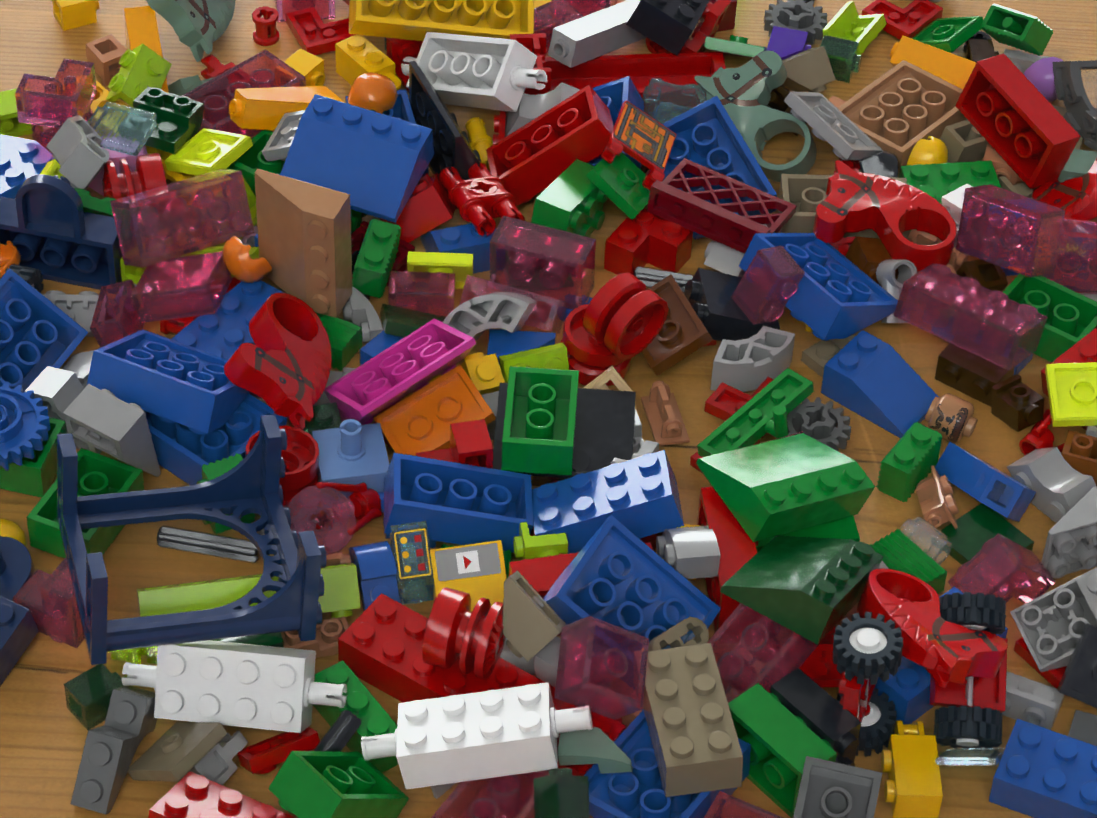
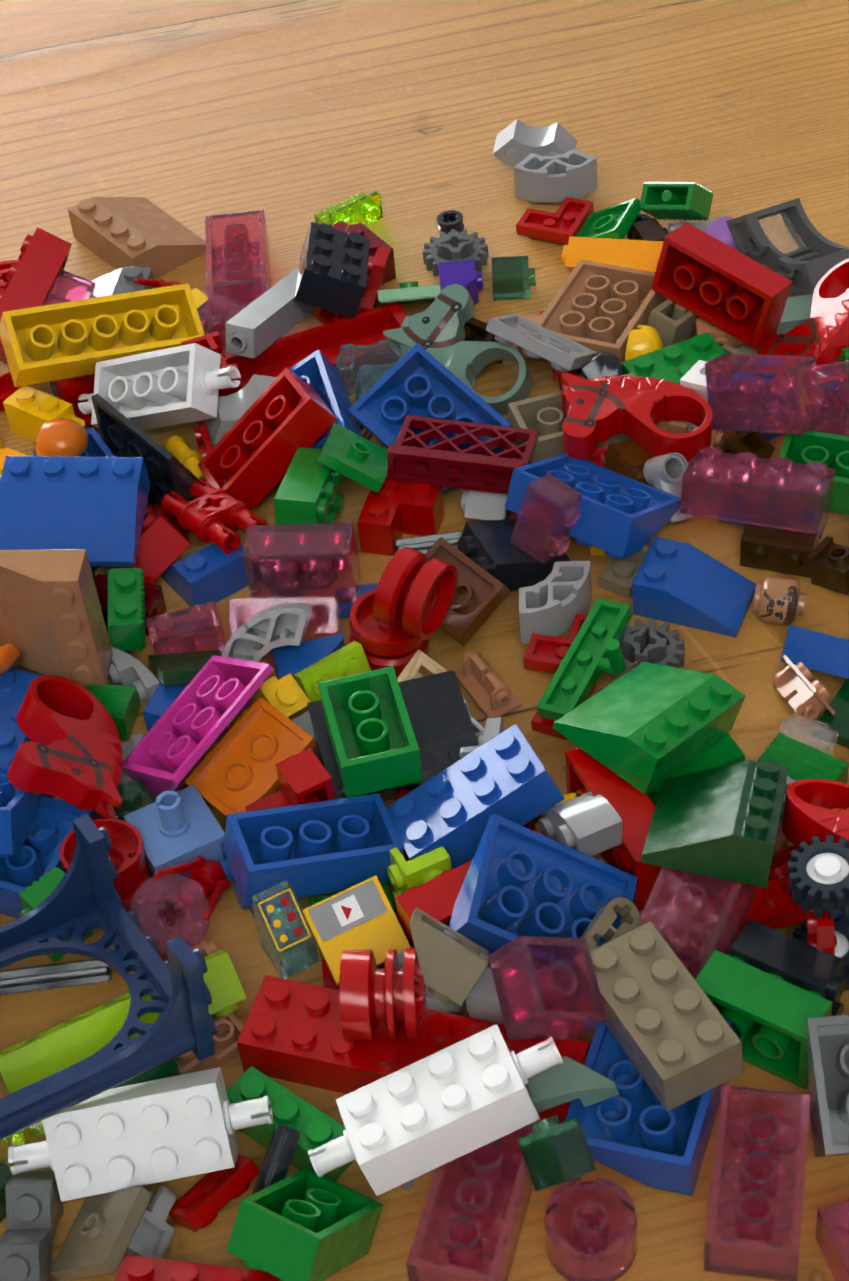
camera: 10 degrees left, 0 degrees up
(375, 571) = (249, 952): blue brick -> none
(435, 262) = (212, 590): neon yellow plate -> none
(641, 139) = (359, 408): flag -> none
(808, 70) = (492, 295): dark tan slope -> none
(855, 27) = (516, 243): lime bracket -> none
(909, 462) = (757, 657): green brick -> none

